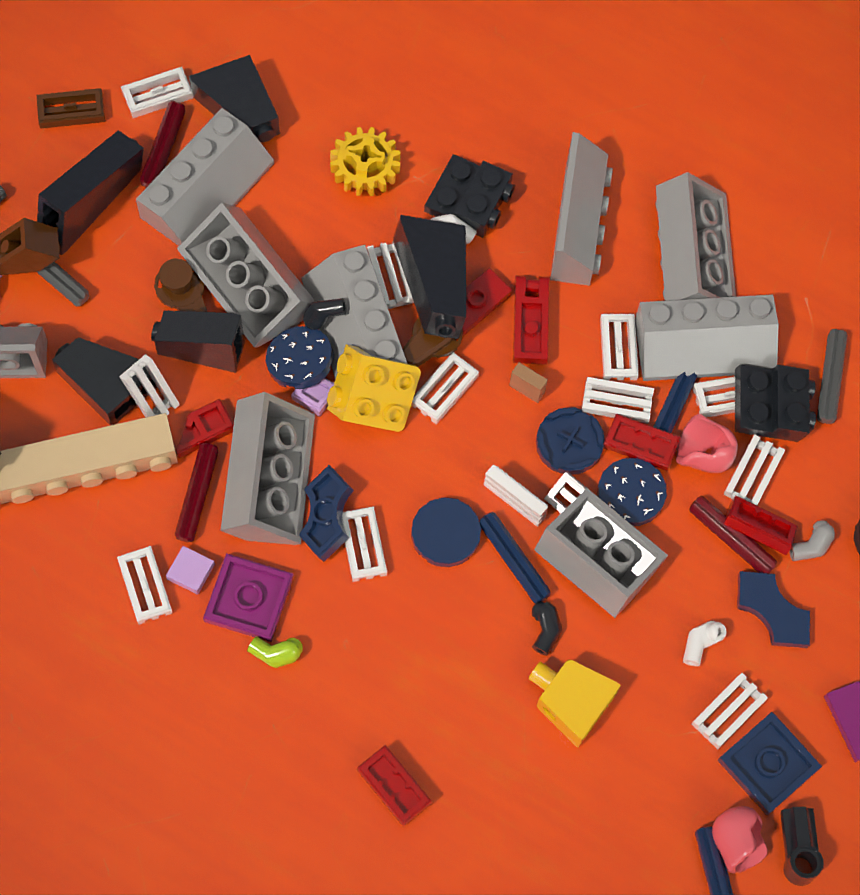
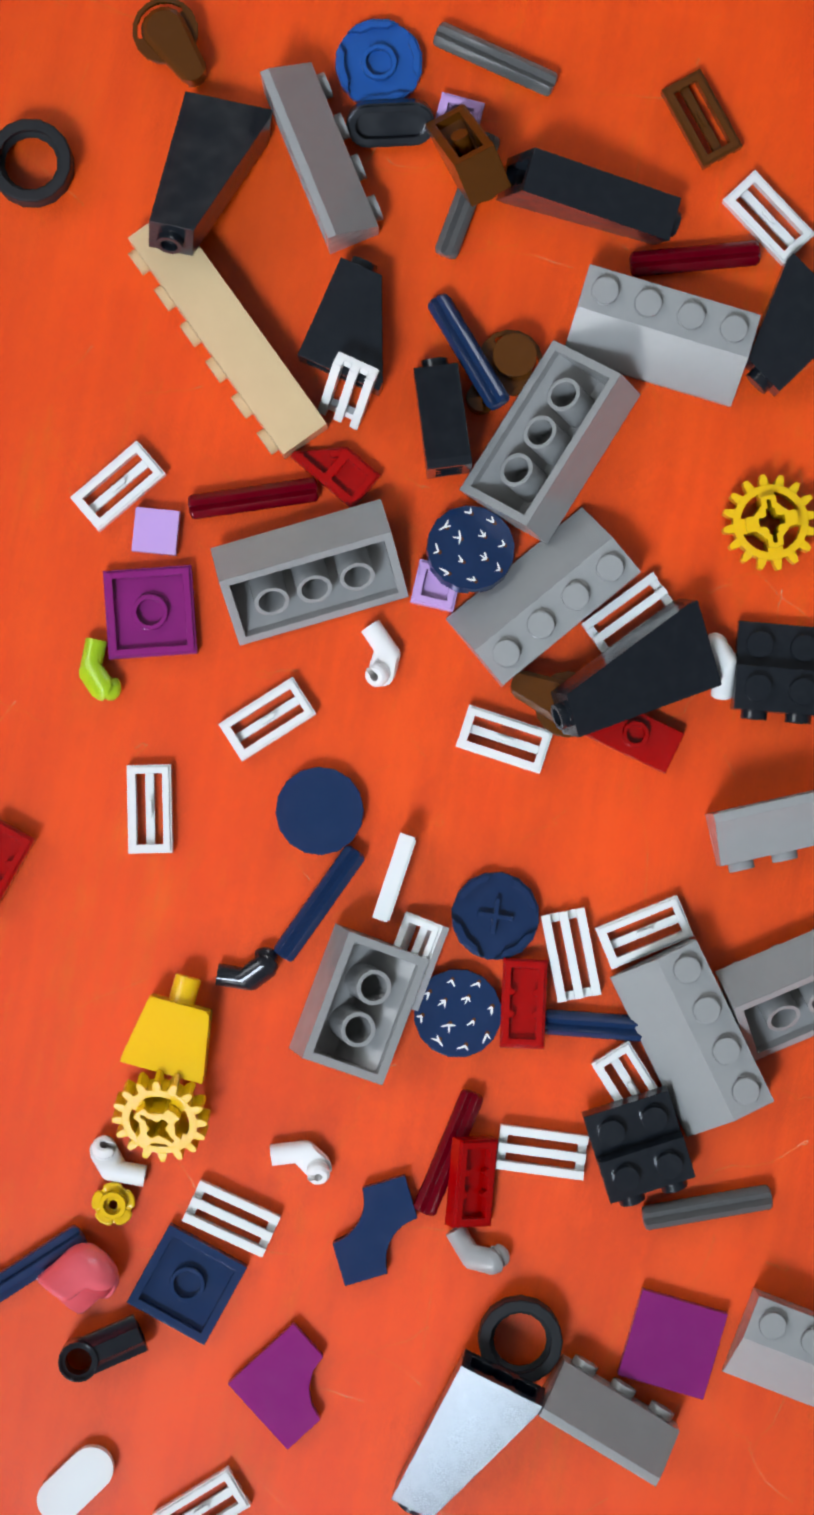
camera: 75 degrees right, 20 degrees up
(156, 305) = (468, 352): none -> dark blue axle
(320, 311) = (530, 552): black arm -> none
(324, 527) = (265, 667): dark blue tile -> none
(350, 444) = (385, 655): none -> white arm
(372, 390) = (452, 655): yellow bracket -> none
(390, 666) = (132, 809): none -> white tile
(528, 382) = (546, 839): medium nougat tile -> none
(531, 320) = (634, 811): red plate -> none
(633, 727) = (161, 1115): none -> yellow gear
(658, 785) = (113, 1166): none -> white arm
(686, 804) = (124, 1199): none -> yellow plate
(699, 436) = (548, 1066): coral hair -> none

